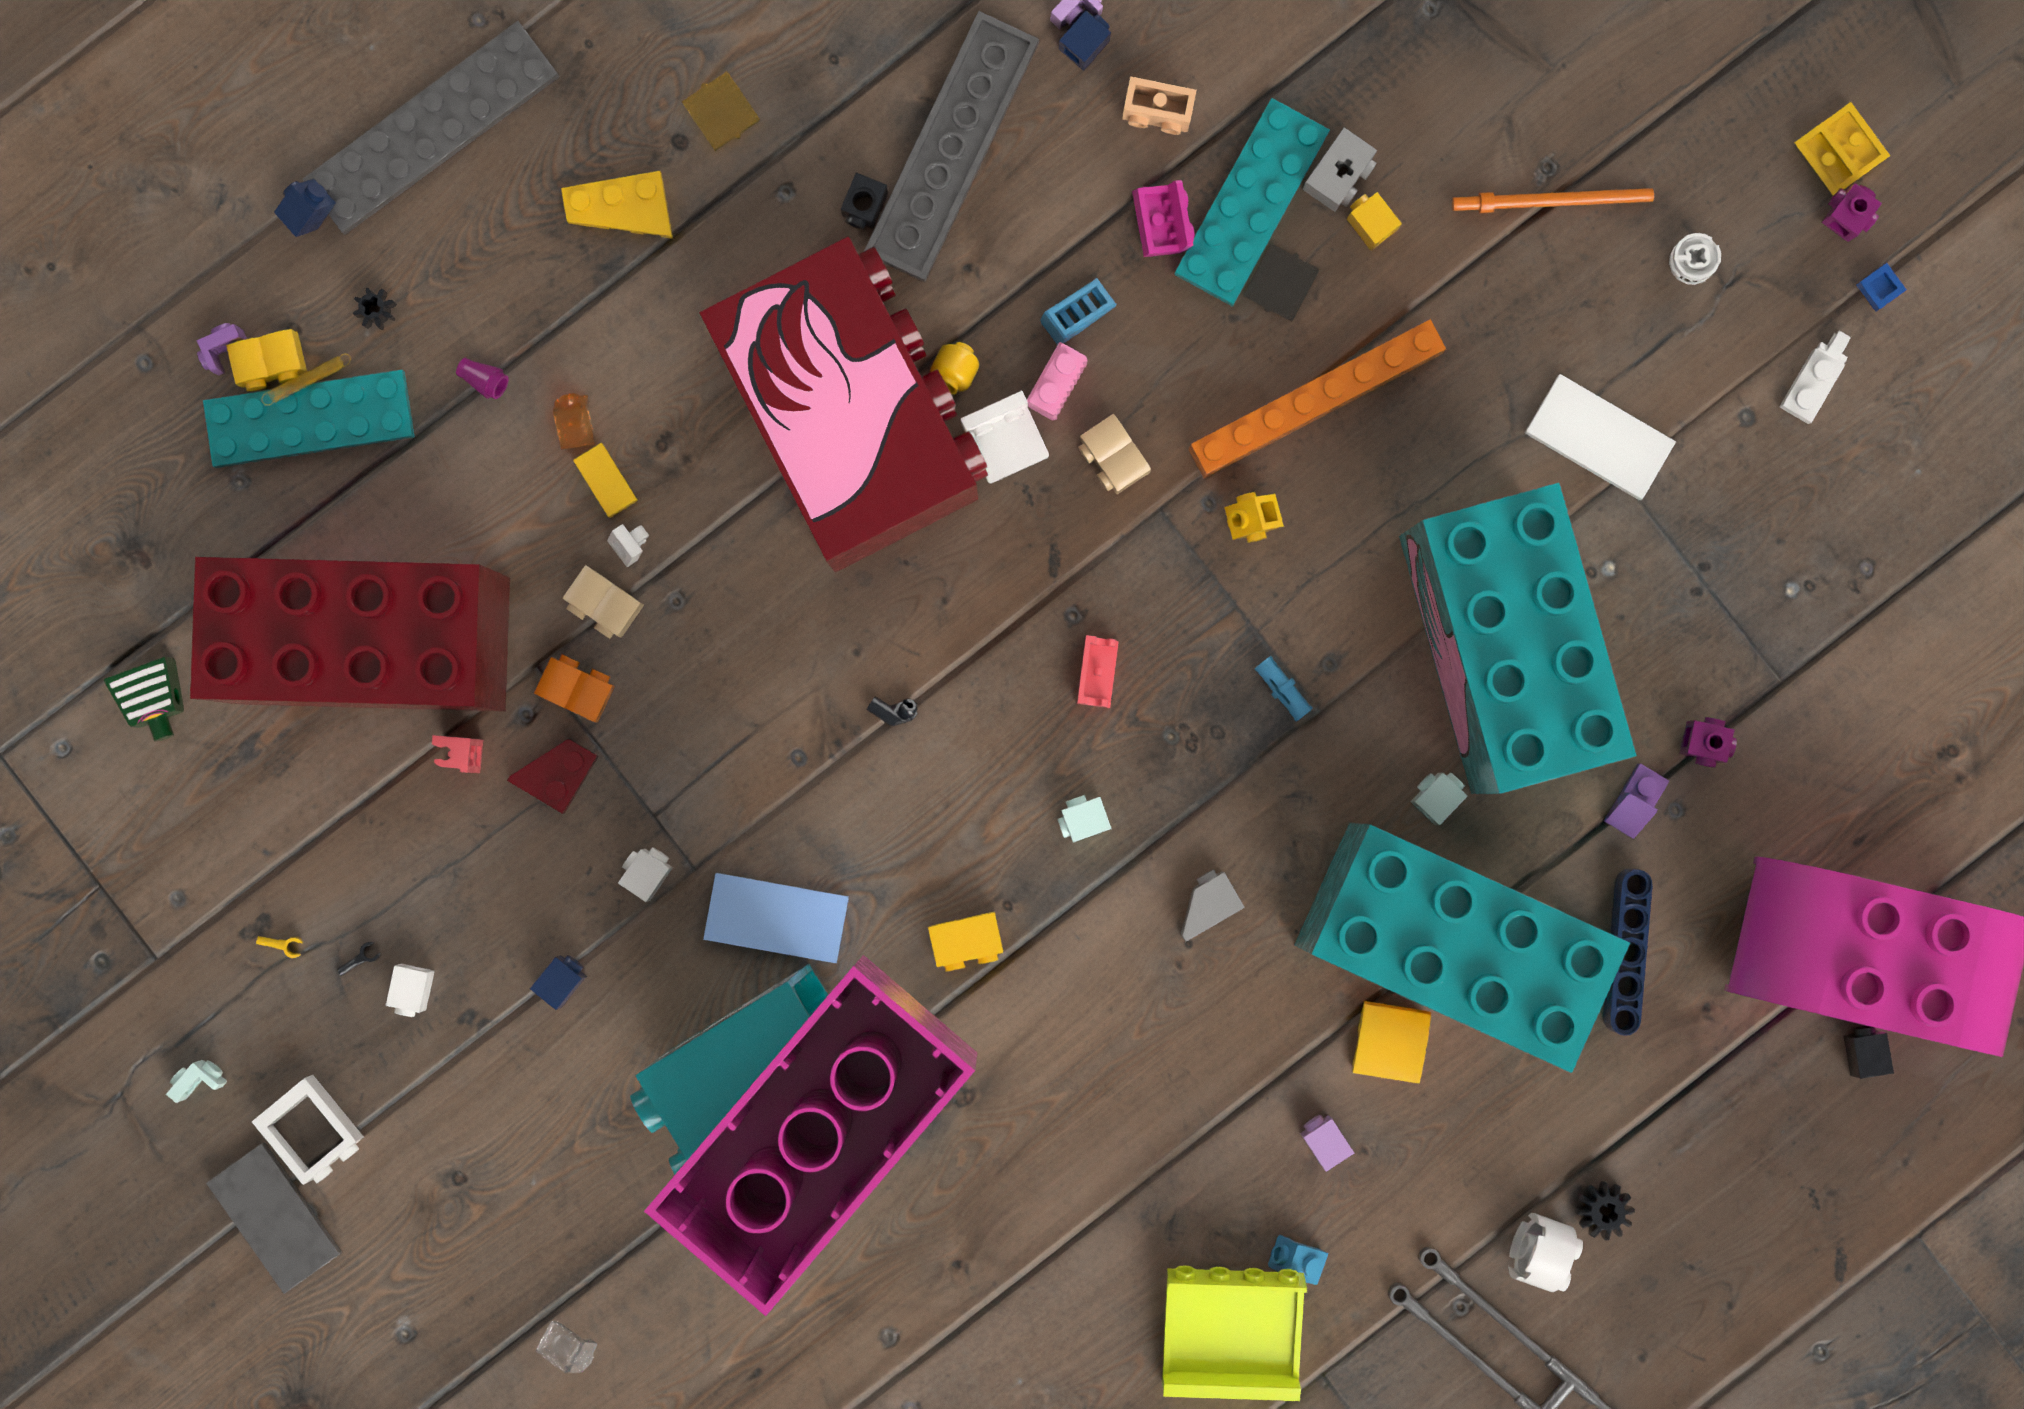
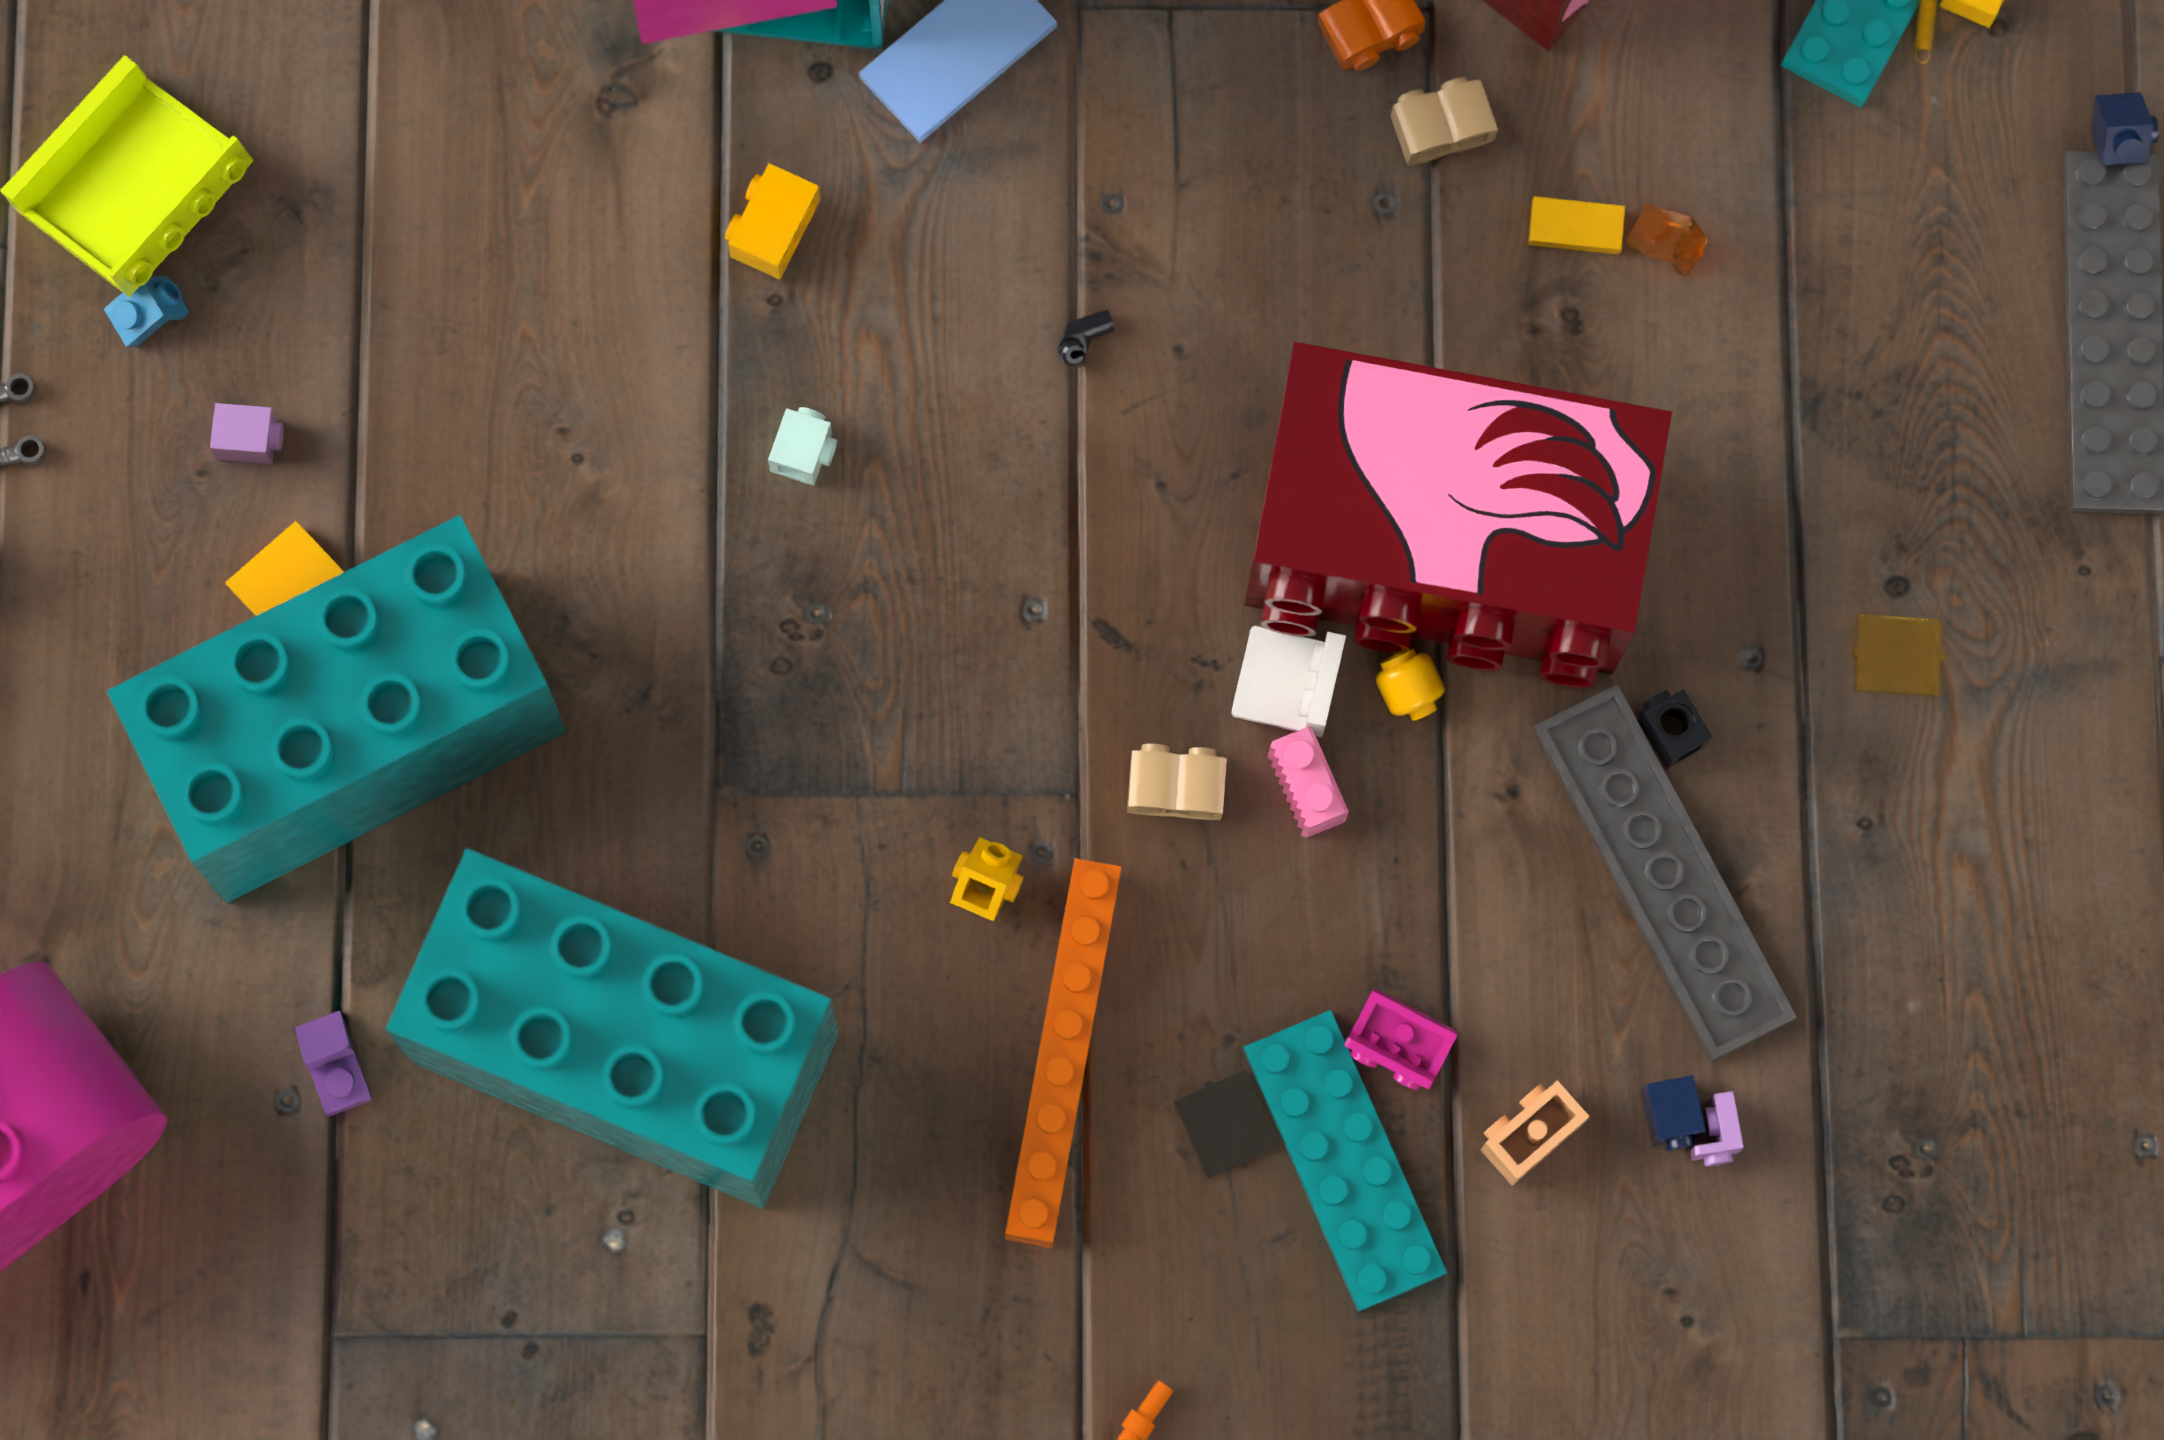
camera: 125 degrees right, 10 degrees down
(376, 300) = (1950, 133): black gear -> none
(486, 379) = (1788, 179): magenta cone -> none
(621, 203) = (1872, 469): yellow wing -> none
(628, 544) = (1487, 193): white tile -> none
(1054, 326) = (1377, 831): dark azure slope -> none
(1097, 671) = (951, 582): coral hinge -> none
(1210, 904) = (600, 508): light grey slope -> none
(1283, 688) = (771, 769): dark azure pin -> none
(1345, 151) = (1308, 1256): light grey brick -> none
(1373, 220) = (1217, 1276): yellow brick -> none
(1439, 796) = (515, 839): light aqua brick -> none
(1600, 437) = (769, 1344): white tile -> none
(1636, 935) = (165, 899): dark blue beam -> none
(1697, 745) = (349, 1190): magenta brick -> none

